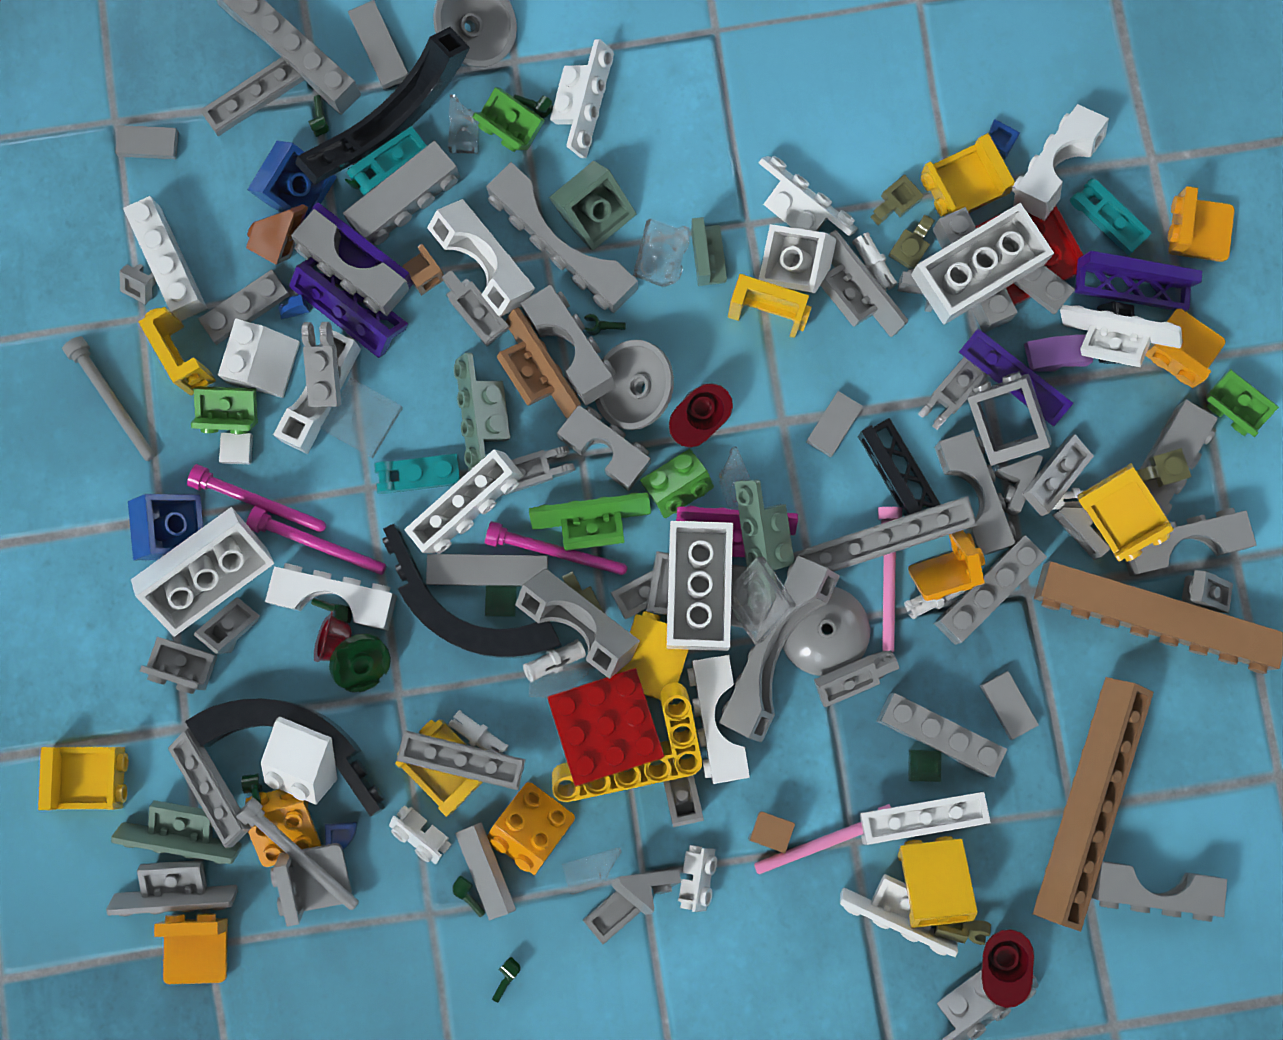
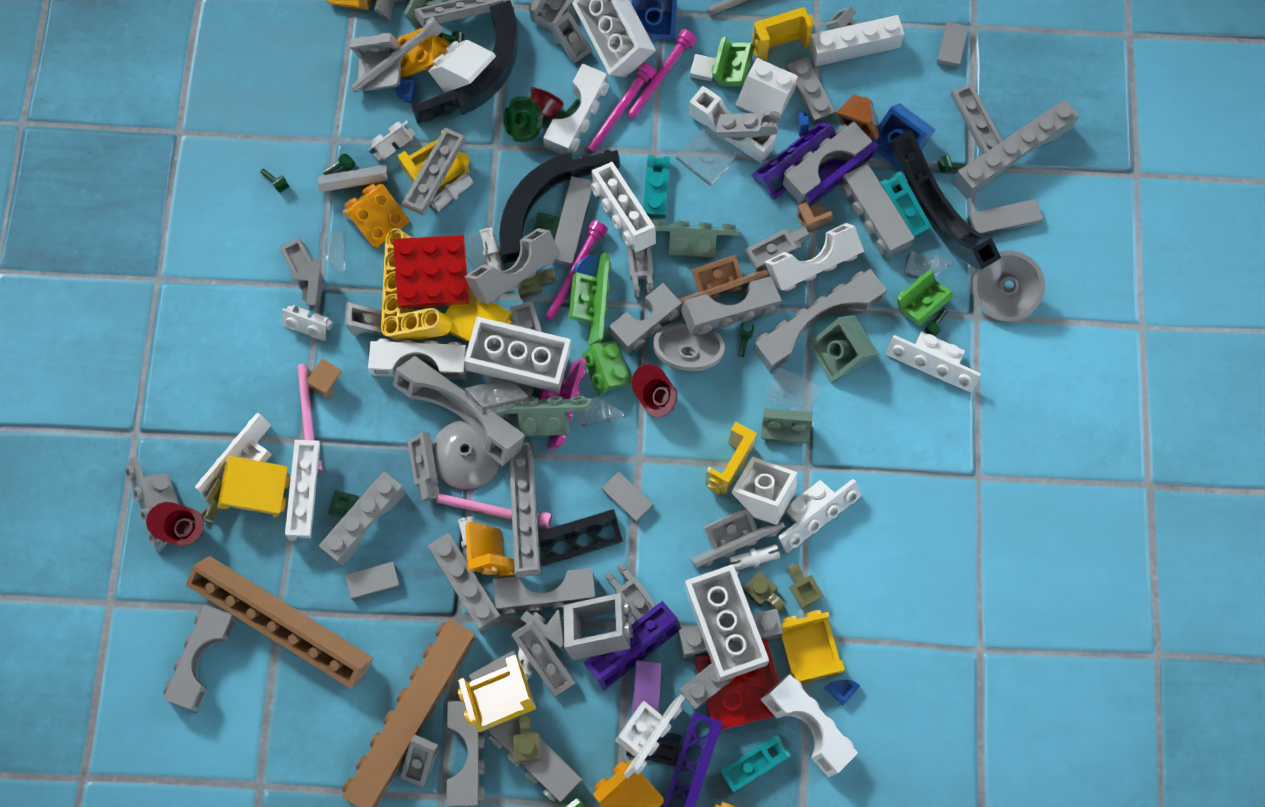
camera: 100 degrees right, 10 degrees down
(547, 533) = (588, 265): none -> blue tile

